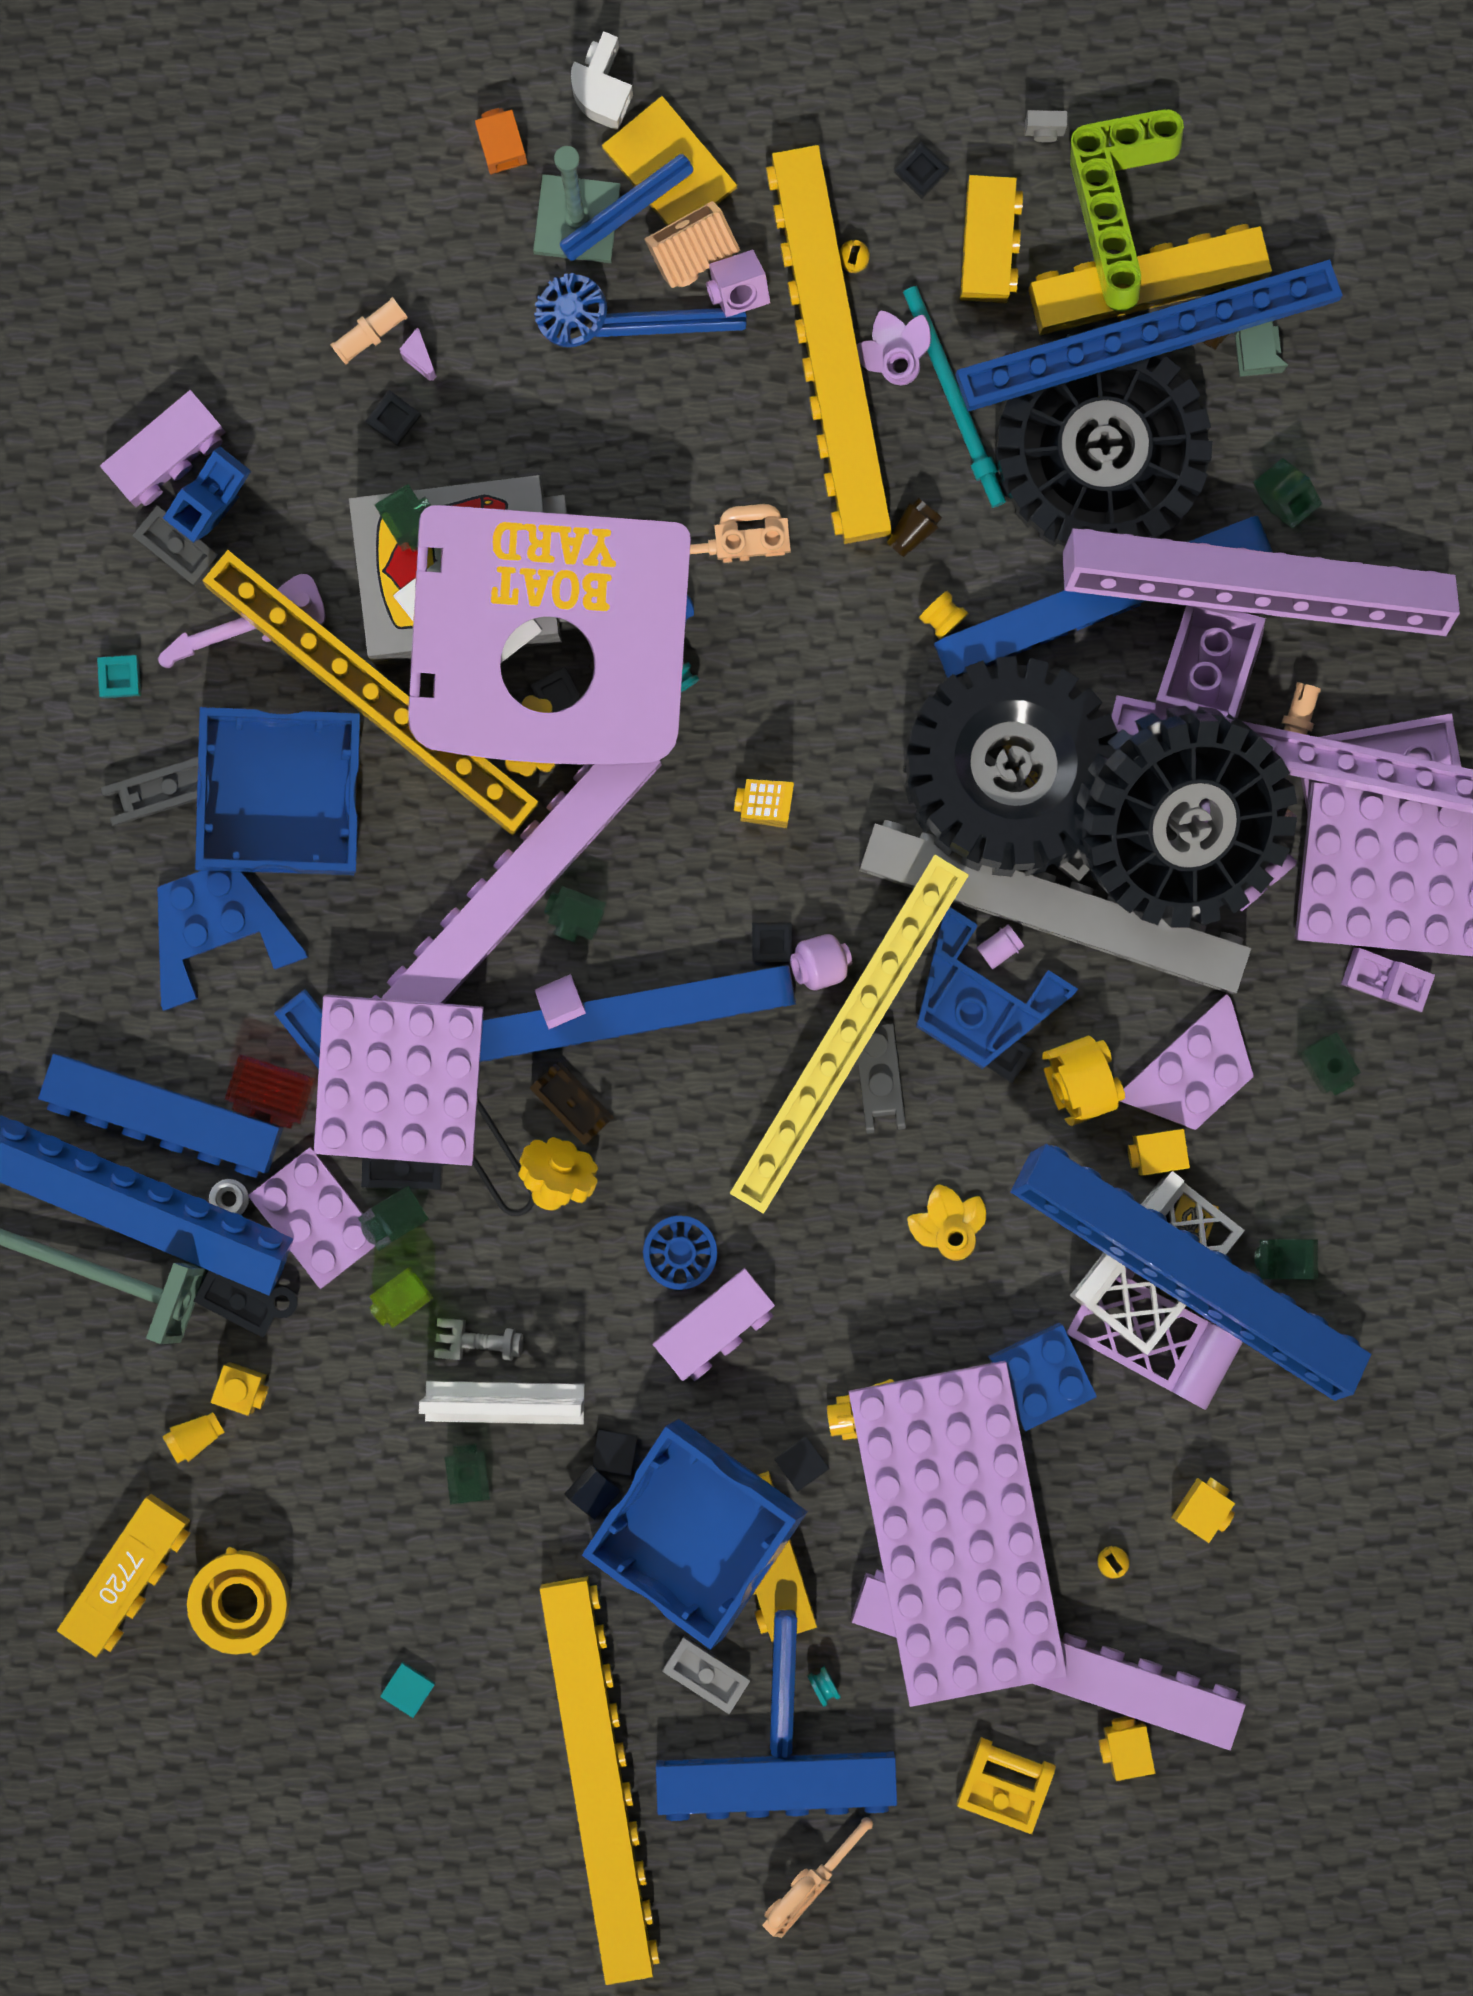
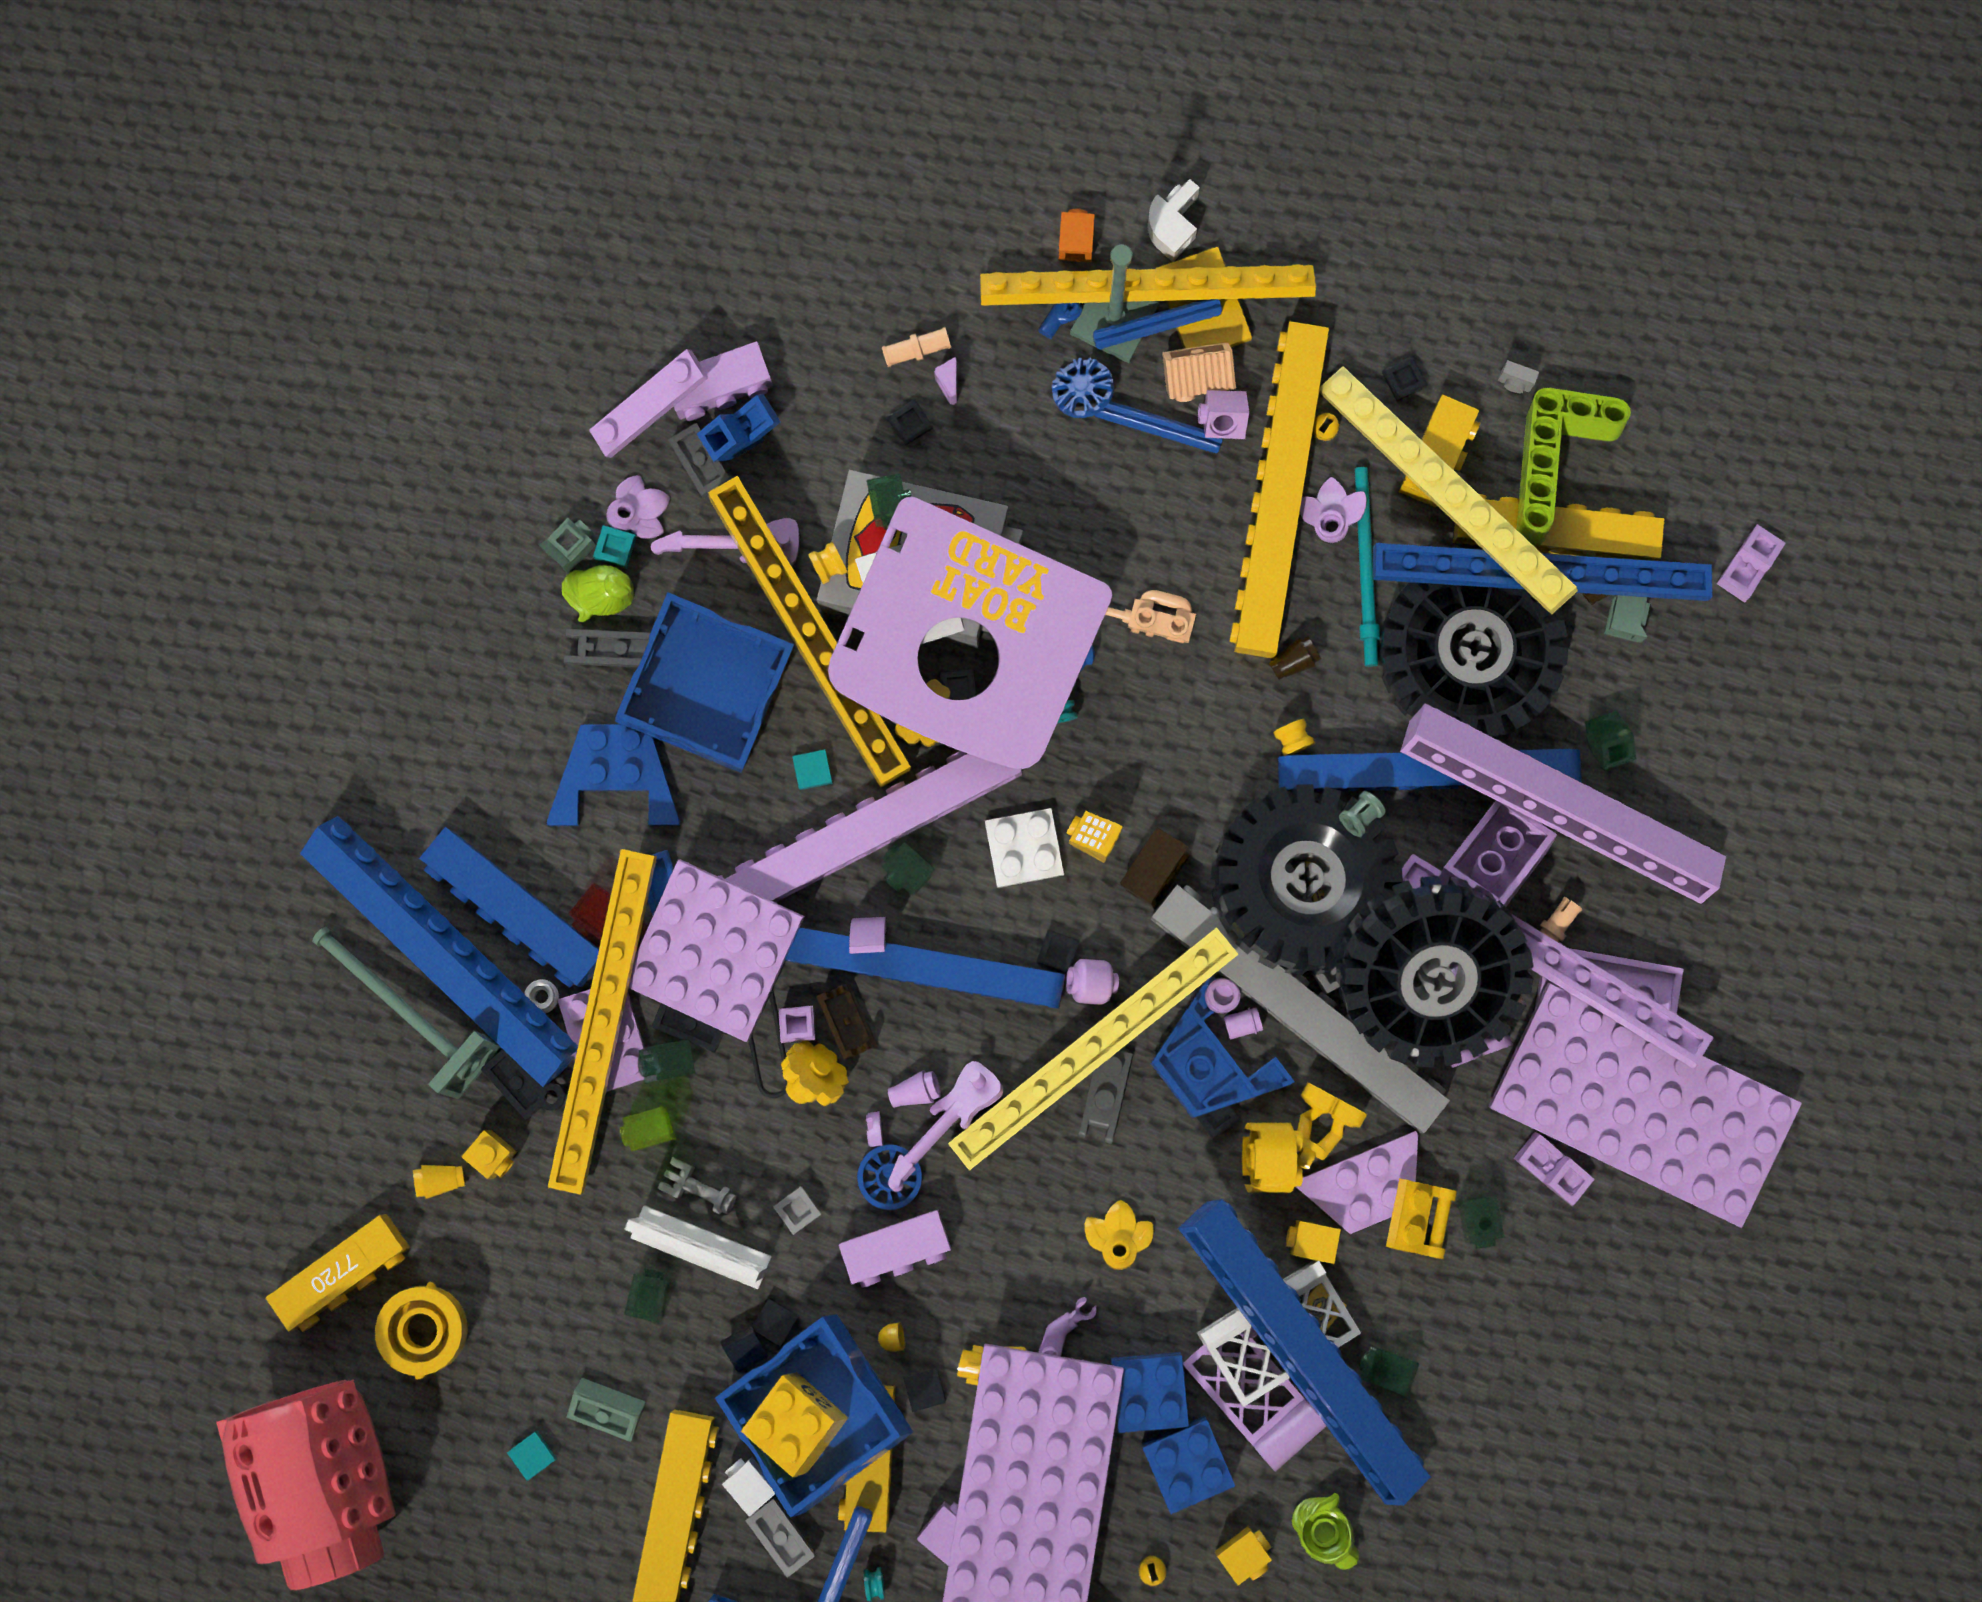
camera: 30 degrees right, 5 degrees down
(67, 692) = (569, 544): none -> sand green window
(96, 503) = (648, 403): none -> lavender plate
(119, 732) = (598, 591): none -> lime hair
(130, 618) = (641, 504): none -> lavender plate
(183, 1804) = (309, 1482): none -> coral piece
(307, 1200) = (602, 1021): none -> yellow plate
(365, 611) = (827, 563): none -> yellow wheel
(430, 843) = (812, 769): none -> teal tile
(468, 1611) = (605, 1409): none -> sand green slope
(514, 236) = (1060, 314): none -> blue arm
(519, 1125) = (797, 1024): none -> lavender slope
(594, 1324) = (797, 1210): none -> light grey plate
(601, 168) = (1149, 285): none -> yellow plate
(645, 1208) = (874, 1132): none -> lavender tile
(651, 1633) = (748, 1485): none -> white brick
(673, 1149) = (918, 1089): none -> lavender cone
(677, 1551) = (794, 1424): none -> yellow brick
(693, 843) = (1024, 848): none -> white plate
(736, 1127) = (973, 1091): none -> lavender piece
(746, 1421) = (892, 1337): none -> yellow hinge
(845, 813) = (1156, 868): none -> dark brown hinge
(919, 1350) = (1056, 1331): none -> lavender arm
(967, 925) = (1222, 995): none -> lavender tile
(1013, 281) = (1448, 490): none -> light yellow plate
(1047, 673) = (1362, 814): none -> sand green bush
(1110, 1437) = (1188, 1465): none -> blue brick
(1141, 1005) = (1342, 1115): none -> yellow piece
(1254, 1086) = (1412, 1215): none -> yellow plate
(1281, 1452) = (1325, 1531): none -> lime hair
(1372, 240) = (1751, 563): none -> lavender slope

